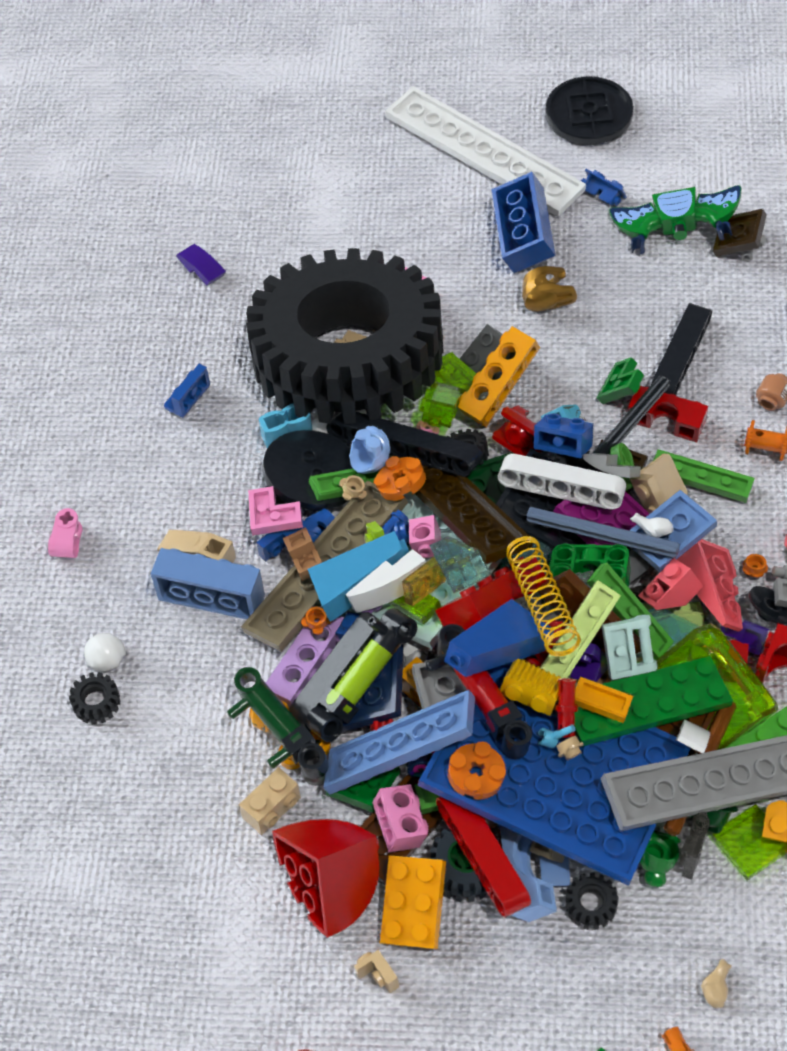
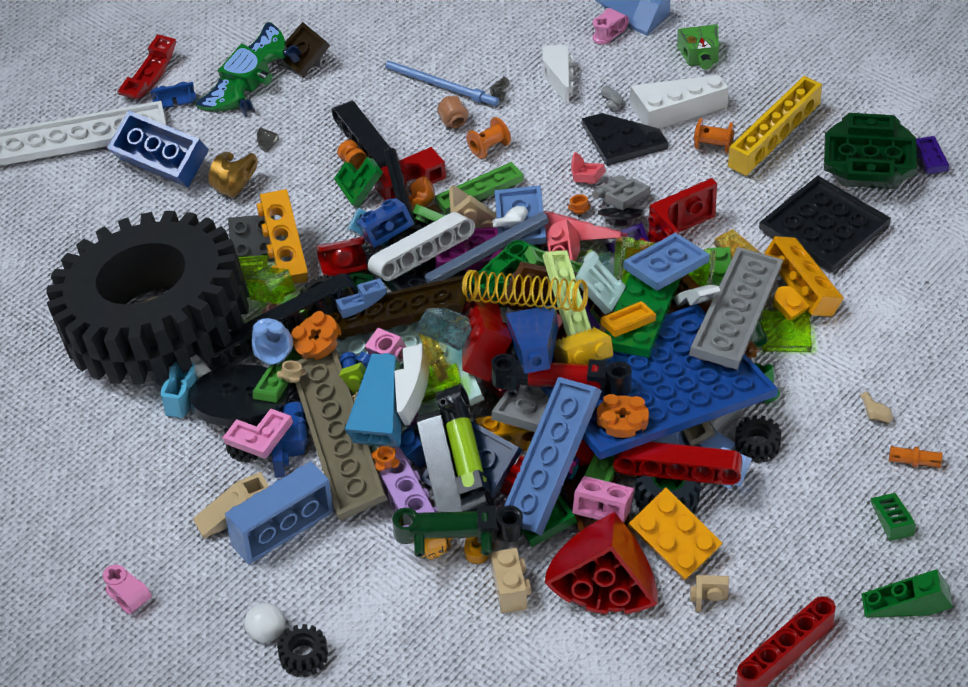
camera: 55 degrees left, 10 degrees down
(188, 391) = (73, 434): blue bracket -> none
(302, 552) = (314, 436): medium nougat slope -> none
(468, 482) = (367, 295): none -> medium blue slope
(551, 737) = (634, 356): medium azure hand -> none
(566, 704) = (619, 337): red pin -> none
(569, 748) = (649, 359): tan plate -> none
(589, 110) = (93, 62): black plate -> none
(608, 464) = (430, 215): light grey slope -> none
(615, 153) = (151, 70): none -> red slope
(617, 285) = (266, 139): none -> clear smoke tile
(649, 440) = (421, 192): none -> orange hair
(651, 355) = (350, 152): none -> orange wheel
(693, 846) = (771, 351): clear smoke plate -> none
(708, 684) = (666, 261): none -> medium blue plate

